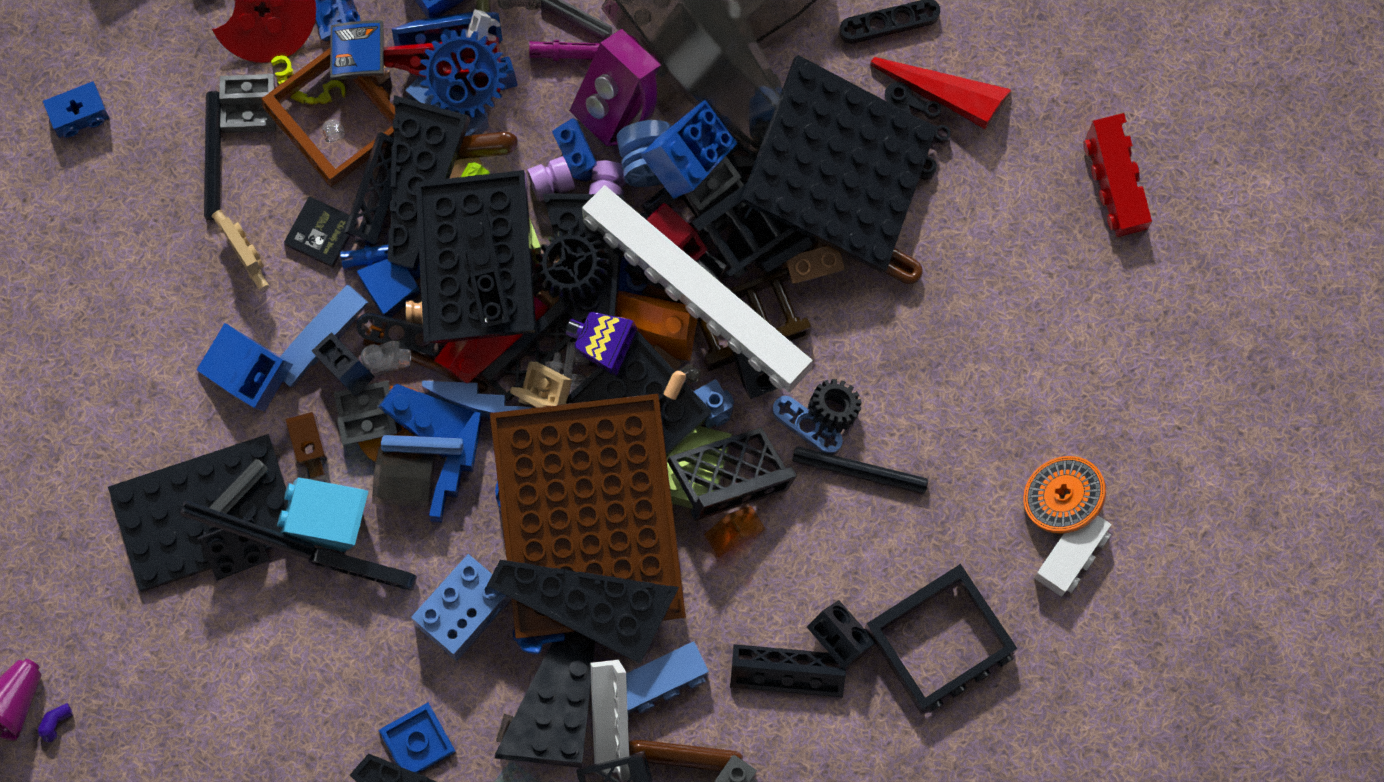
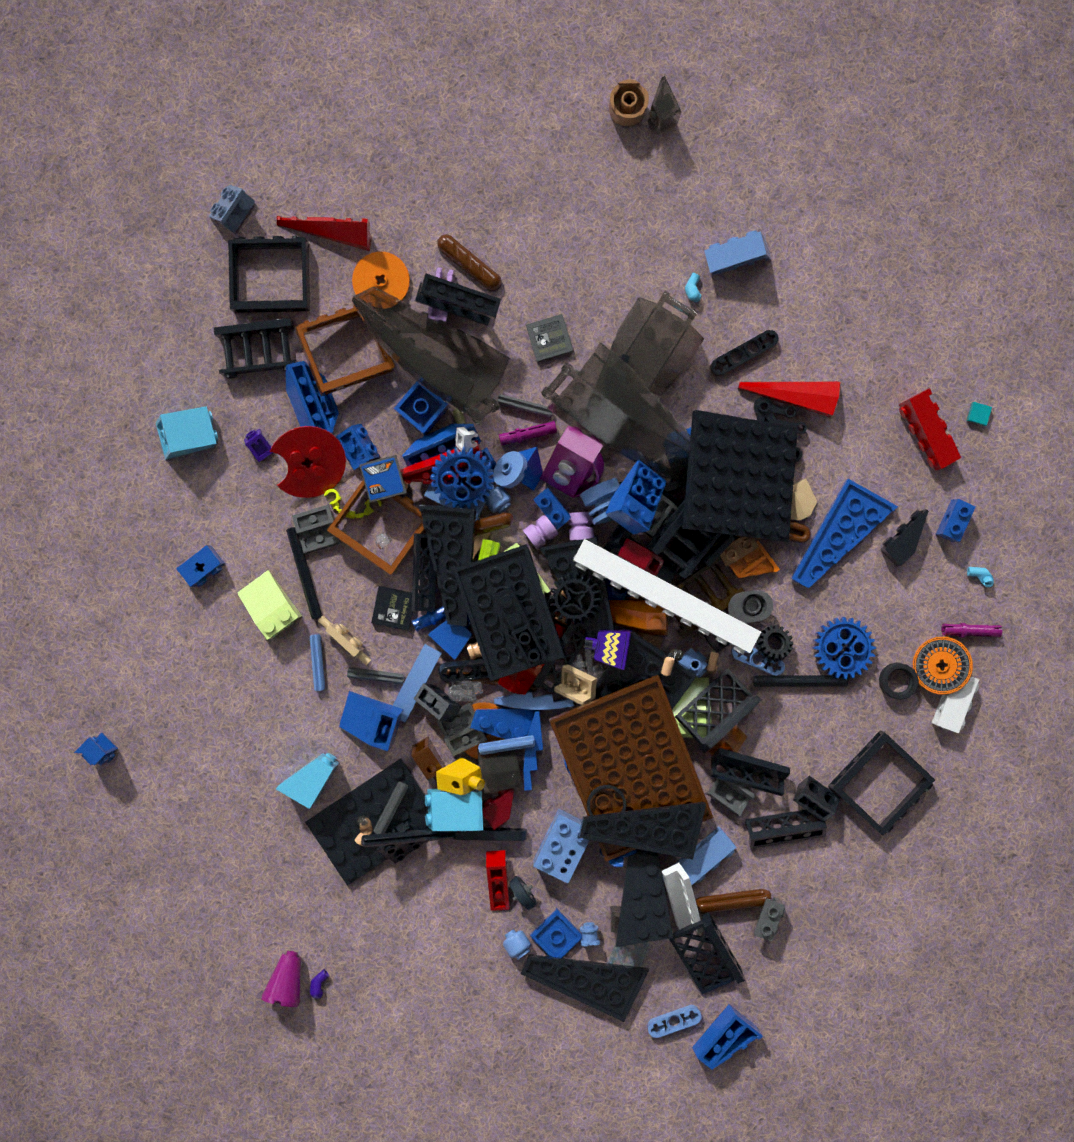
camera: 15 degrees left, 15 degrees up
(135, 422) = (309, 782): none -> medium azure slope
(152, 186) = (269, 605): none -> yellowish green slope
(183, 523) = (365, 828): none -> clear smoke arm
(193, 277) = (317, 662): none -> medium blue axle
(267, 314) = (373, 675): none -> dark grey axle
(354, 472) = (460, 777): none -> yellow torso
(354, 637) = (497, 880): none -> red slope
(356, 735) = (516, 944): none -> medium blue head
(385, 659) = (522, 893): none -> black wheel
(387, 536) = (498, 809): none -> dark red slope
(464, 747) = (589, 934): none -> medium blue brick
(504, 118) = (498, 500): none -> medium blue head
(531, 86) = (510, 469): none -> medium blue plate
(539, 527) = (605, 787): none -> black piece
(553, 93) = (534, 468): none -> blue slope
(721, 598) = (731, 795): none -> dark grey bracket
(739, 413) = (712, 667): none -> light nougat tile
(757, 566) = (749, 766): none -> black fence
(818, 342) = (750, 606): none -> flat silver piece
(832, 293) = (754, 563): none -> orange wing
(920, 228) = (802, 500): none -> tan slope
(945, 458) = (855, 660): none -> blue gear
(976, 273) = (844, 526): none -> blue wing
(1002, 483) = (913, 684): none -> black tyre
(1045, 320) = (905, 542): none -> black slope
(1106, 457) = (971, 630): none -> magenta pin
(1127, 305) = (955, 520): none -> blue brick
(1151, 390) = (982, 574): none -> medium azure arm
(1193, 177) = (979, 413): none -> teal tile

